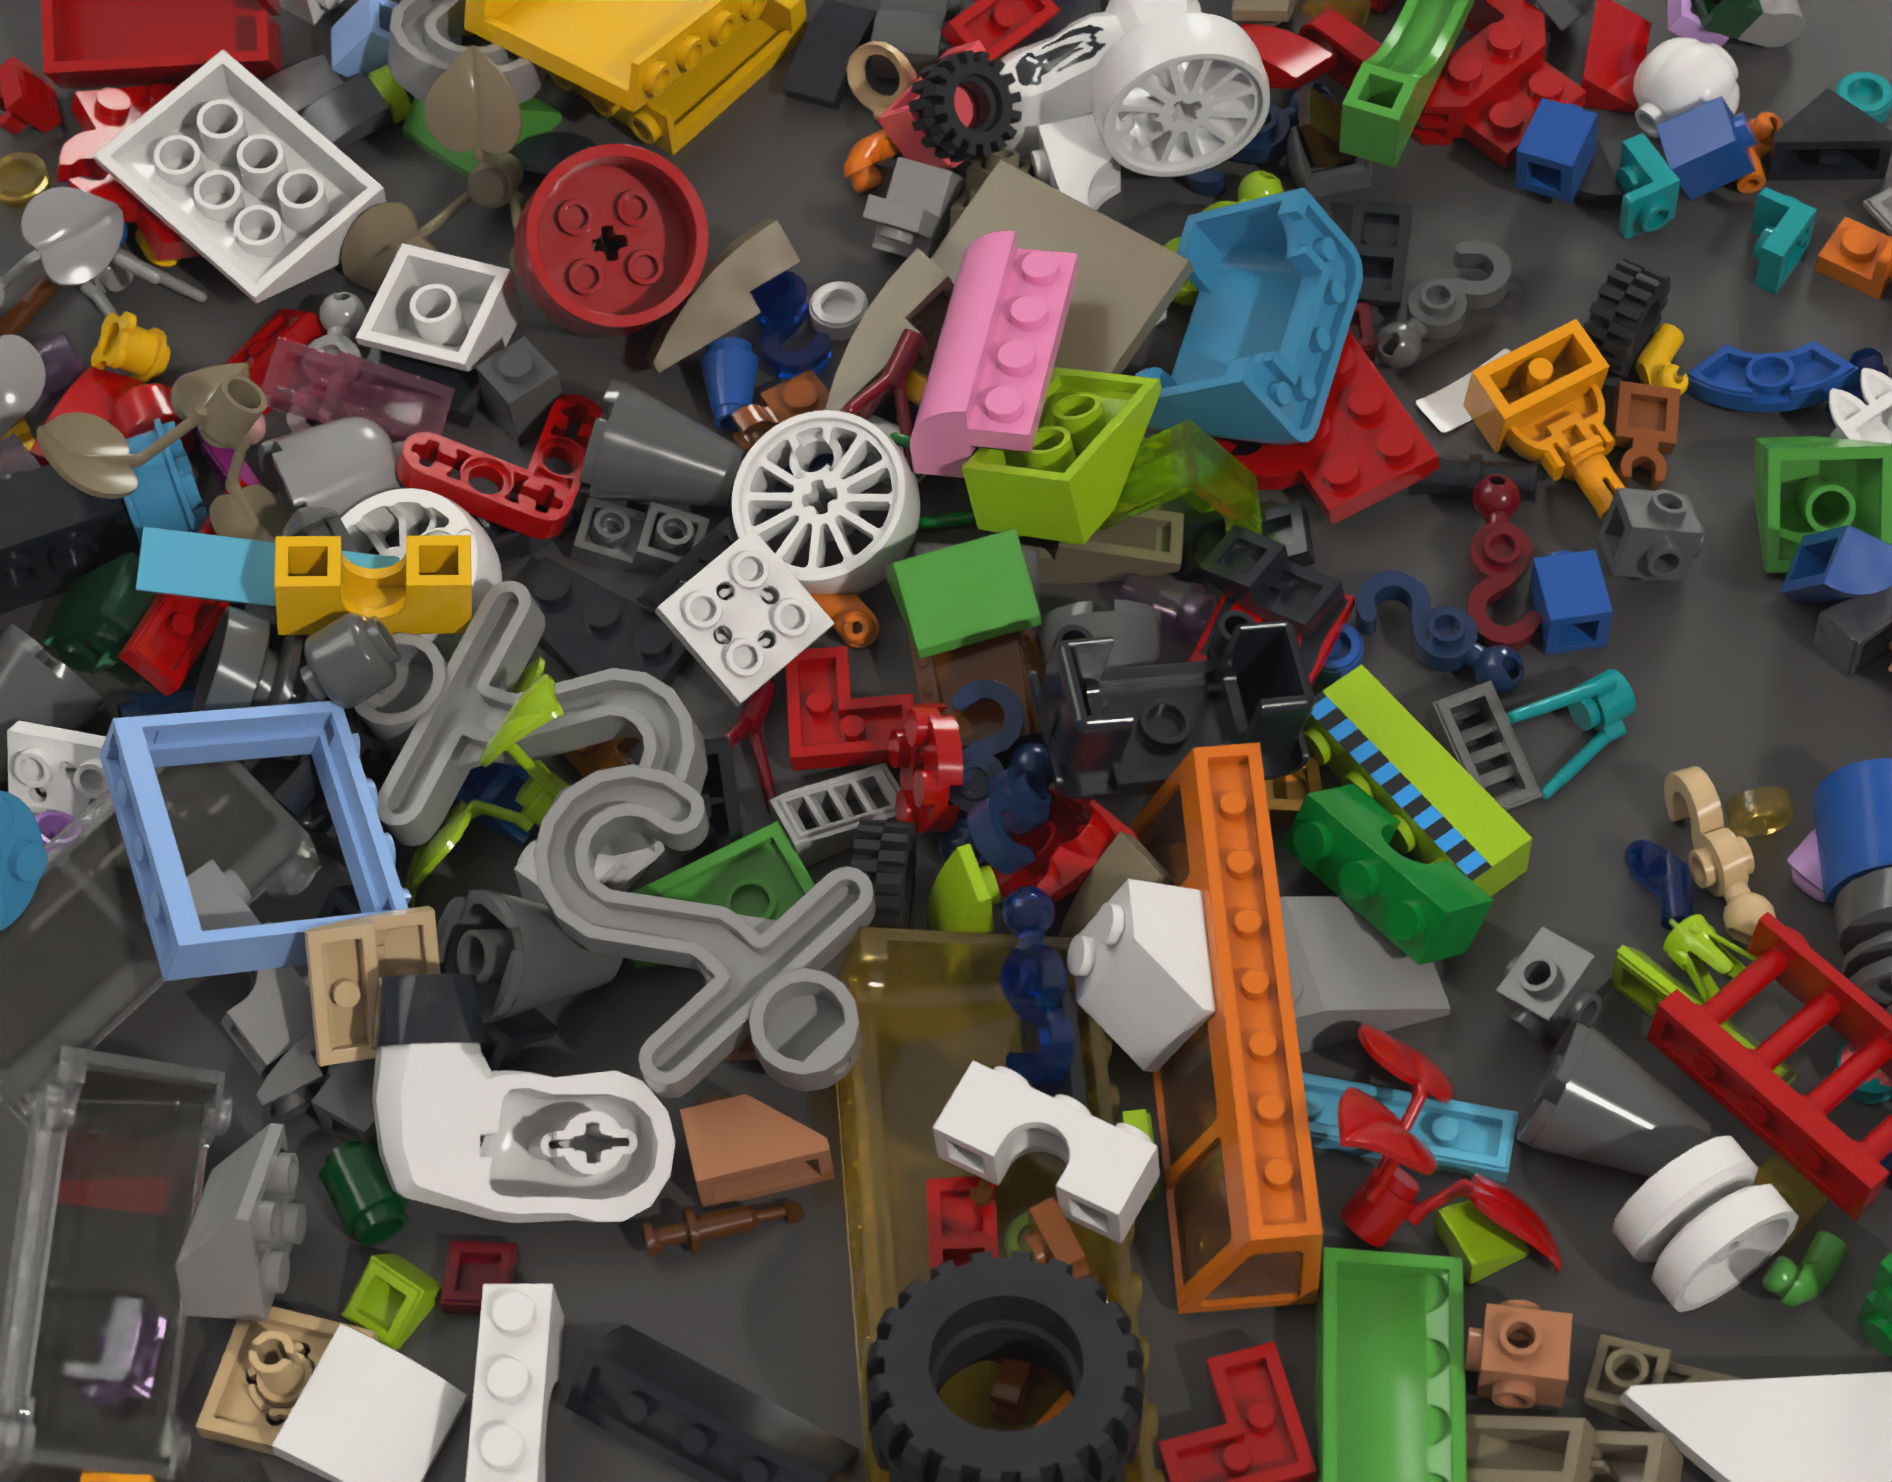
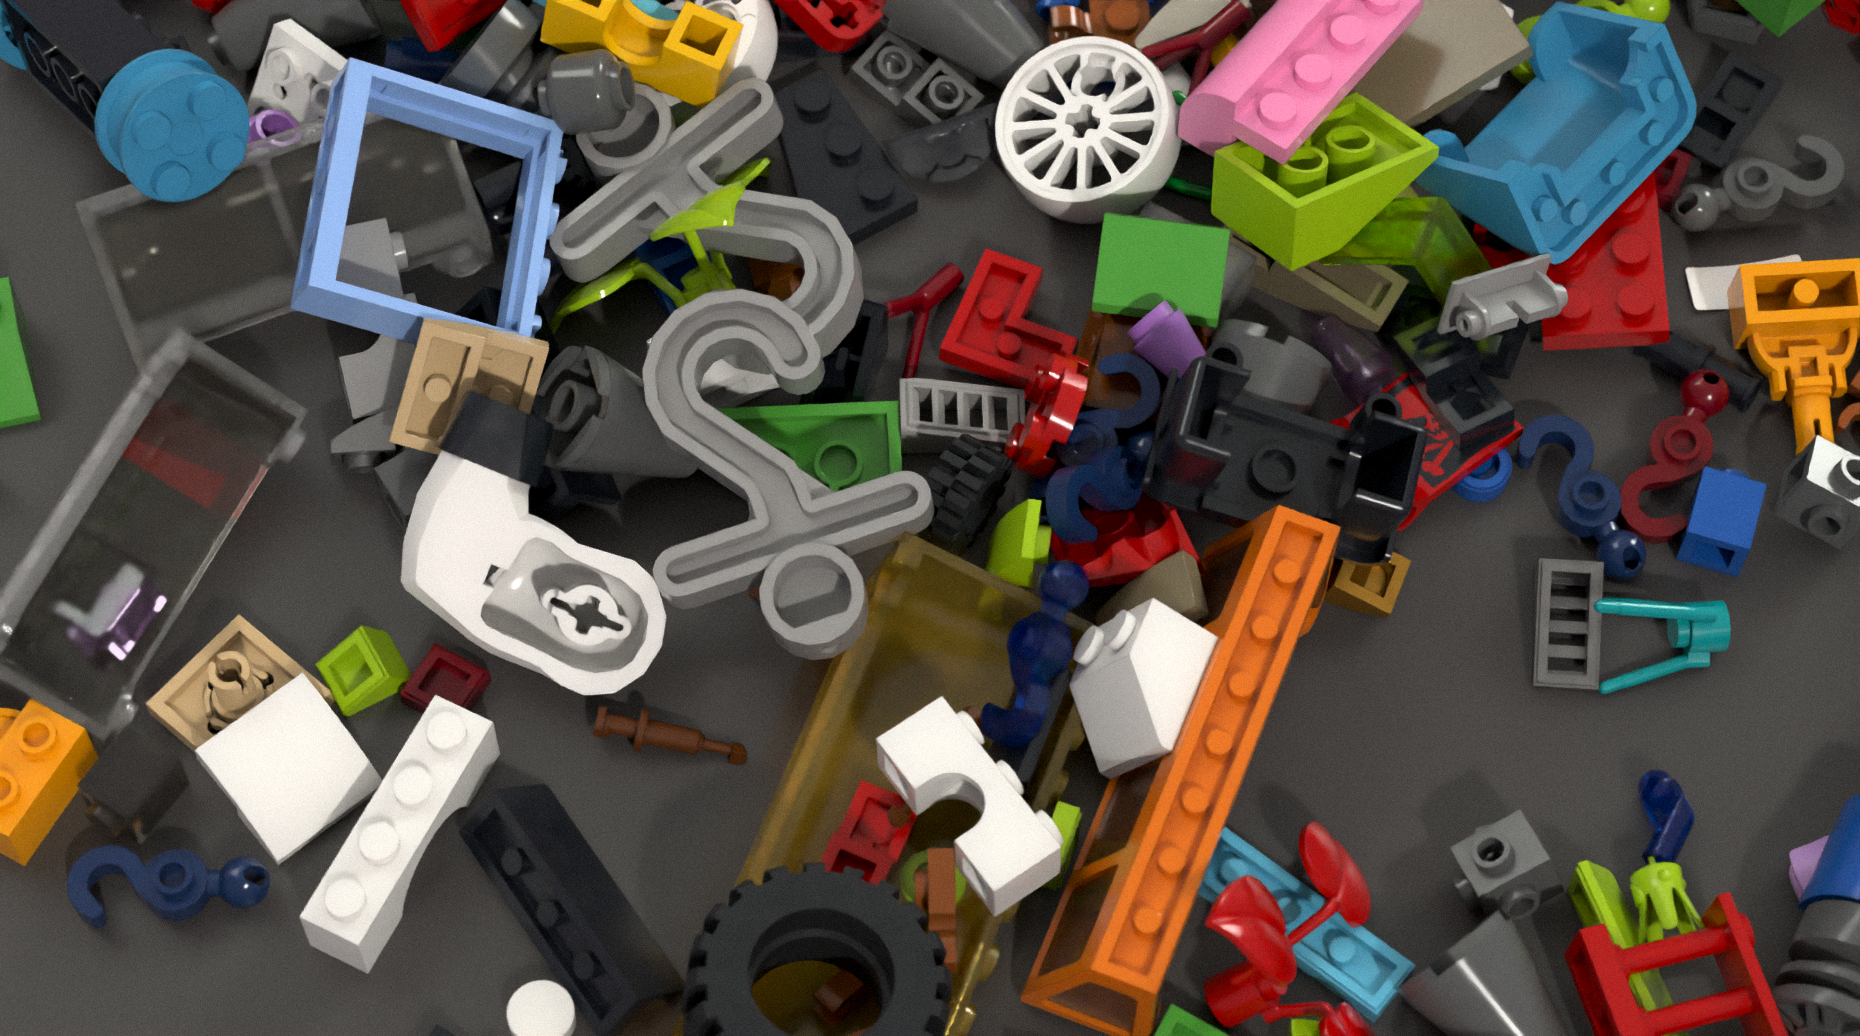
camera: 20 degrees right, 5 degrees up
(243, 1232) = (261, 556): light grey slope -> none
(362, 1193) = (378, 567): dark green brick -> none
(735, 656) = (938, 243): white plate -> none
(750, 1150) = (722, 683): nougat slope -> none
(851, 616) = (1059, 234): orange arm -> none
(1006, 654) = (1166, 340): none -> medium lavender cone
(1281, 490) = (1501, 296): none -> light grey hinge
(1351, 974) = (1334, 765): light grey slope -> none
(1396, 761) = (1480, 630): lime brick -> none
(1416, 905) = (1419, 740): green arch -> none
(1719, 857) = (1726, 822): tan piece -> none
(1759, 811) = (1788, 795): clear yellow tile -> none

